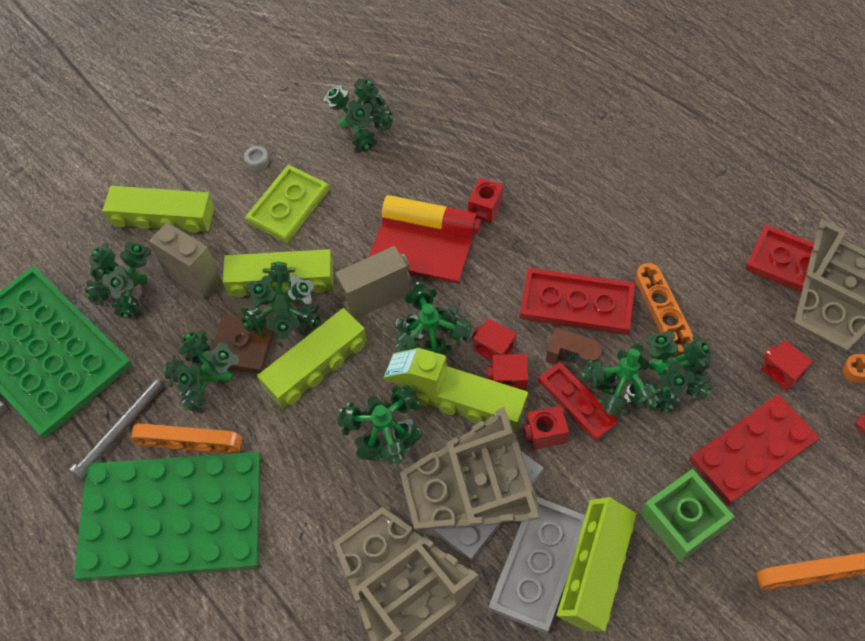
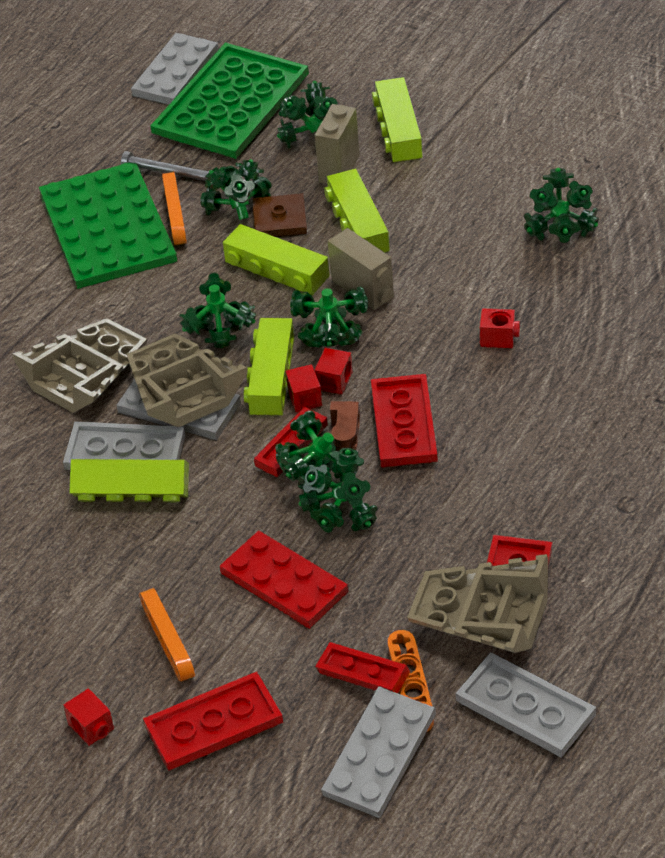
camera: 75 degrees right, 15 degrees down
(256, 158) = (488, 165): light grey tile -> none
(281, 321) = (321, 216): dark green plant -> none
(287, 203) = (443, 200): lime tile -> none
(418, 369) = (270, 316): lime slope -> none
(429, 236) = (436, 299): red door -> none
(550, 417) = (254, 424): red brick -> none
(668, 308) = (452, 466): orange beam -> none
(686, 515) = (191, 528): bright green brick -> none
(785, 365) = (380, 583): red brick -> none

